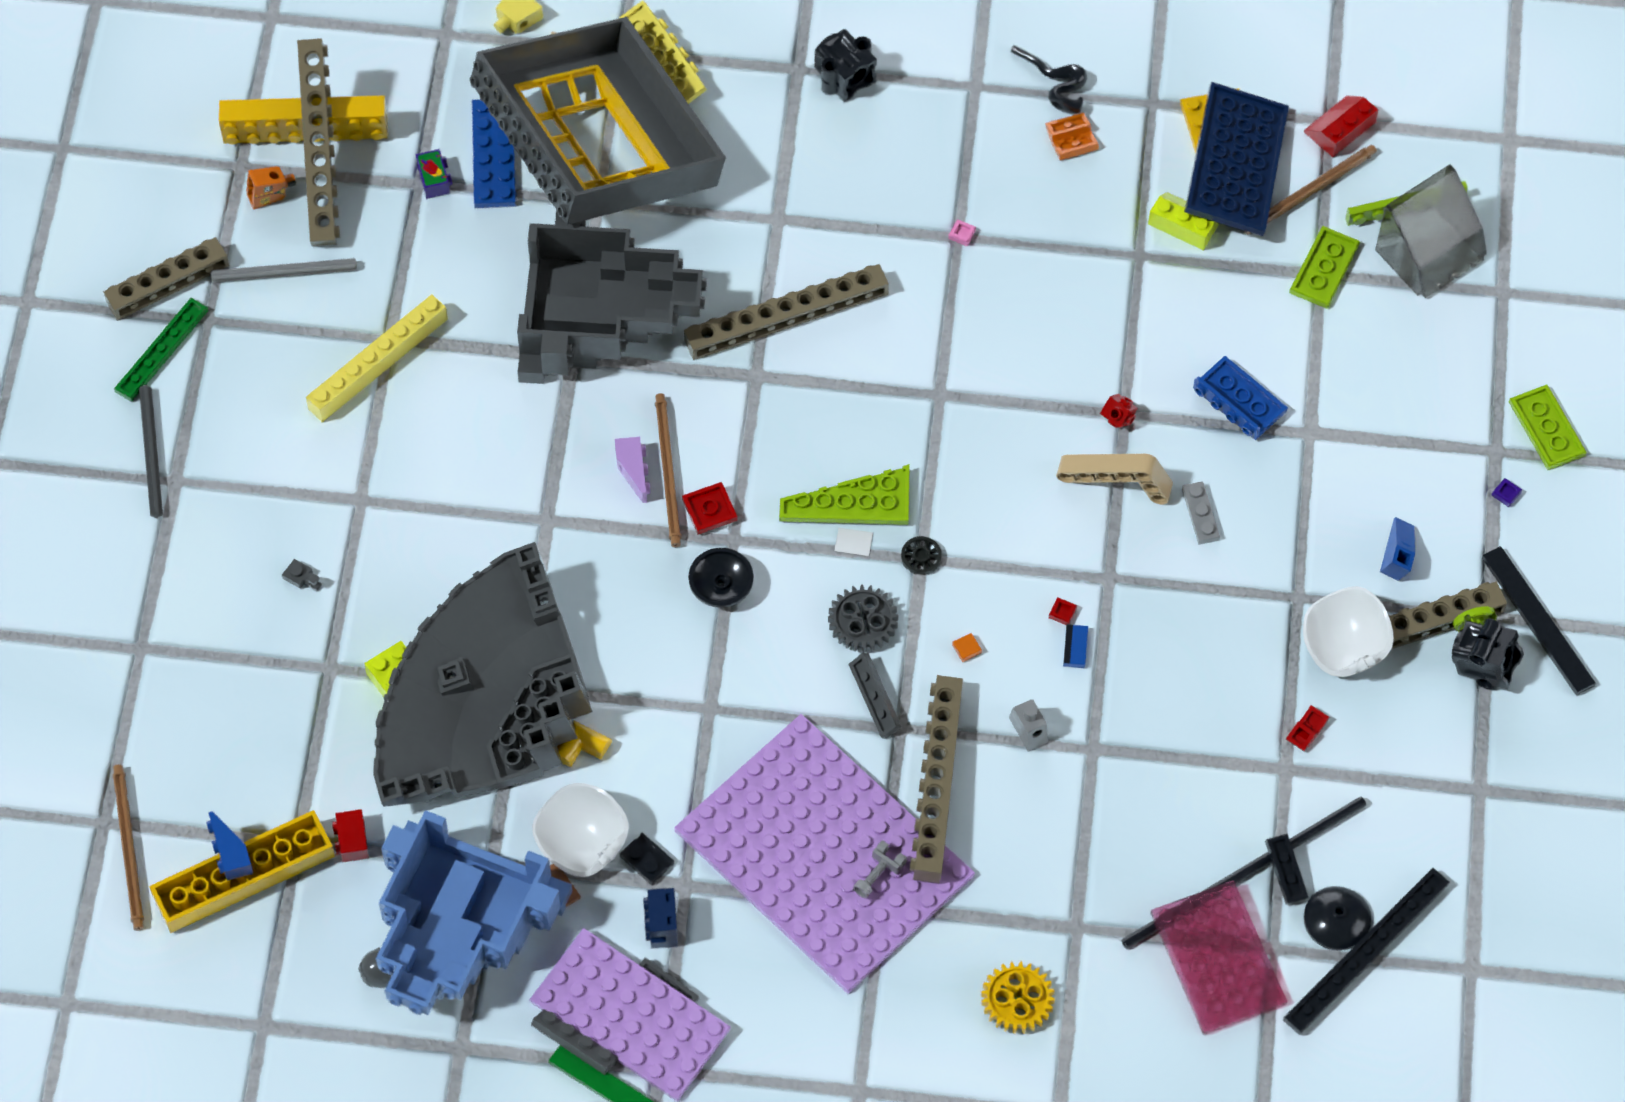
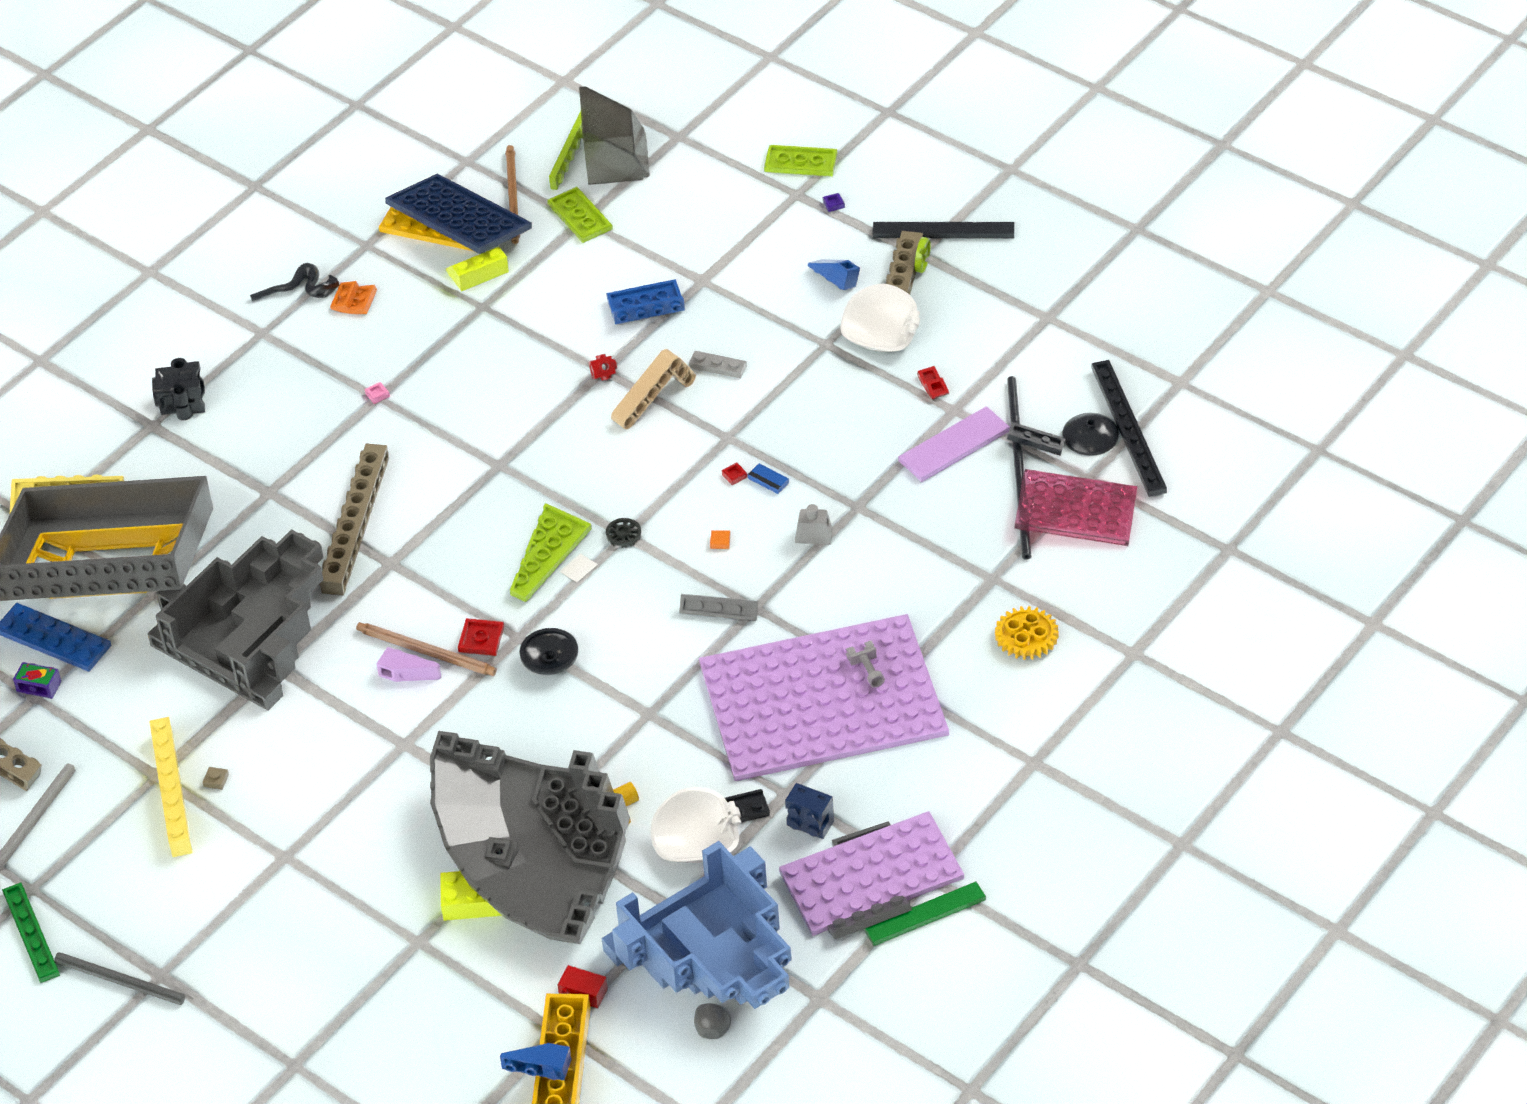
camera: 55 degrees left, 15 degrees down
(301, 574) = (320, 925): dark grey plate -> none
(413, 388) = (215, 778): none -> dark tan plate
(882, 613) = (649, 586): dark grey gear -> none
(931, 868) = (819, 597): dark tan brick -> none
(1235, 794) = (953, 444): none -> lavender tile
(1342, 124) = (475, 153): red slope -> none
(1487, 653) = (954, 257): black piece -> none

